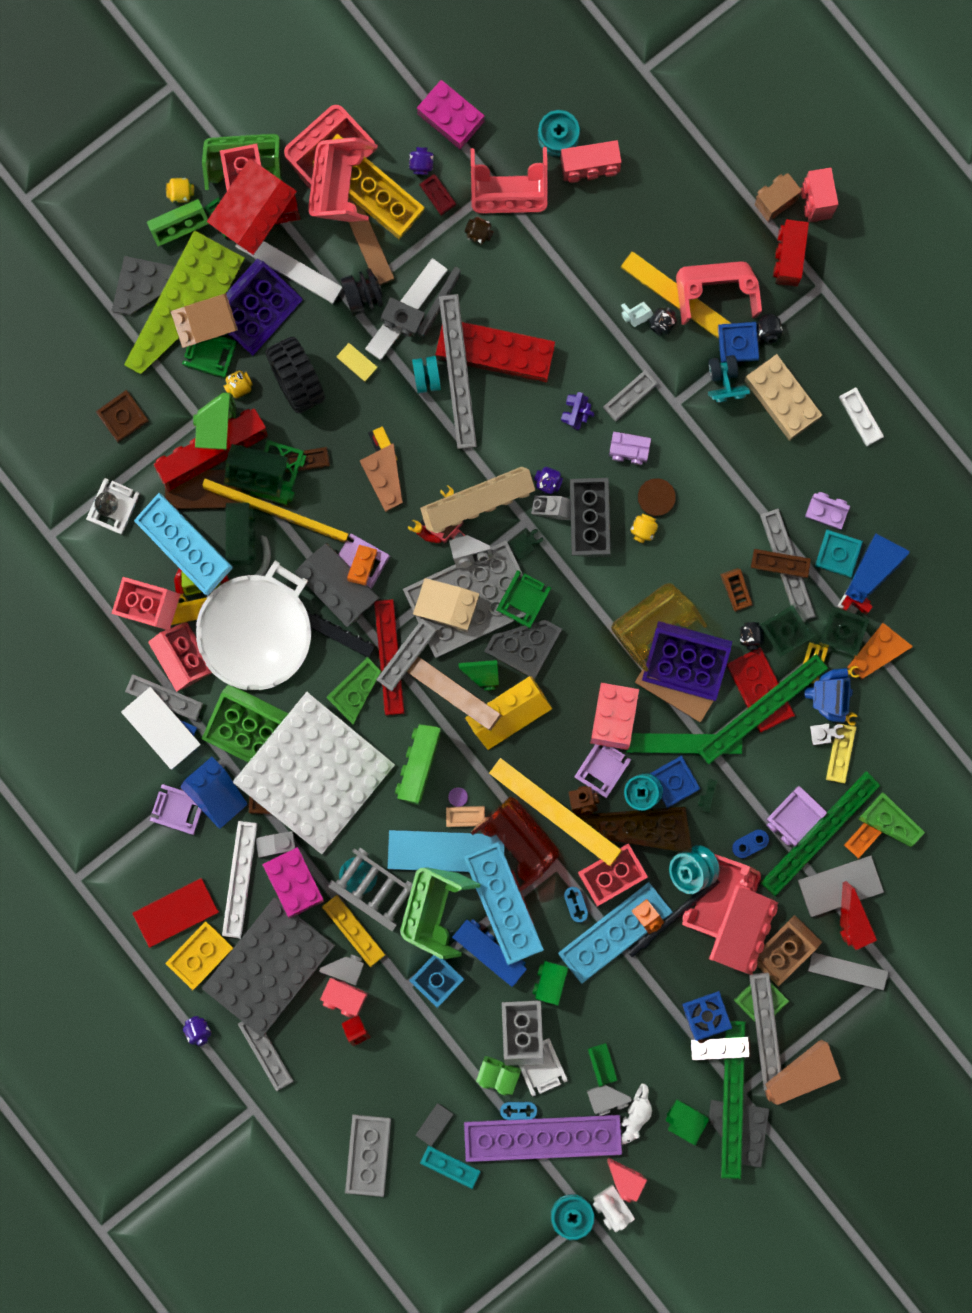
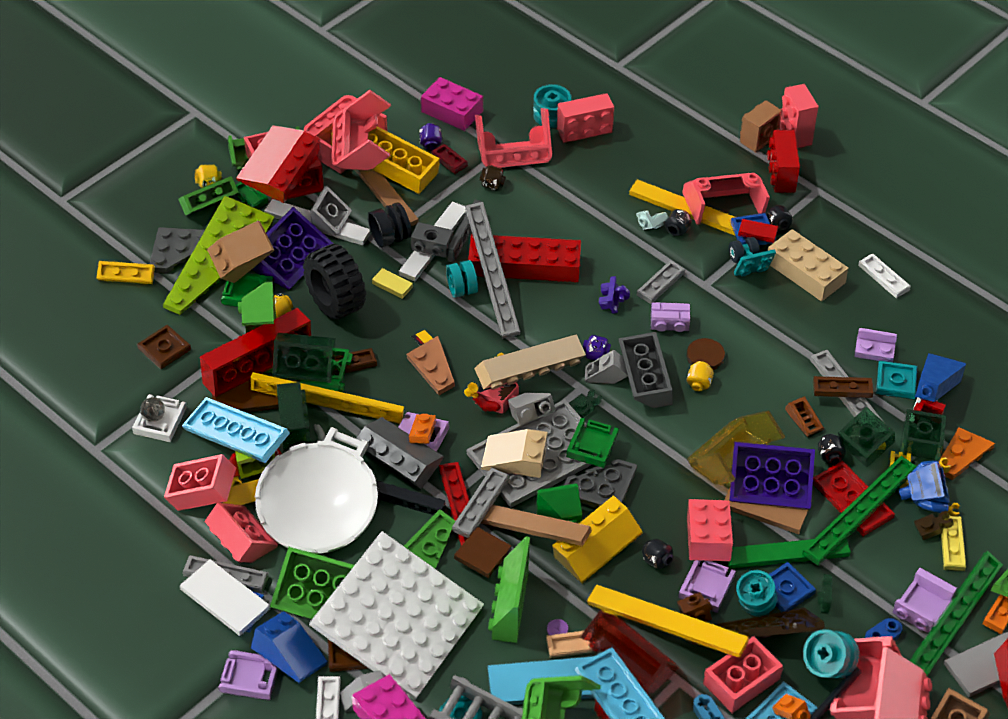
camera: 10 degrees left, 35 degrees down
(88, 314) = (125, 272): none -> yellow tile
(302, 266) = (329, 212): none -> light grey slope
(401, 710) = (482, 552): none -> reddish brown tile
(562, 732) = (657, 553): none -> black head
(741, 349) = (759, 230): none -> red tile

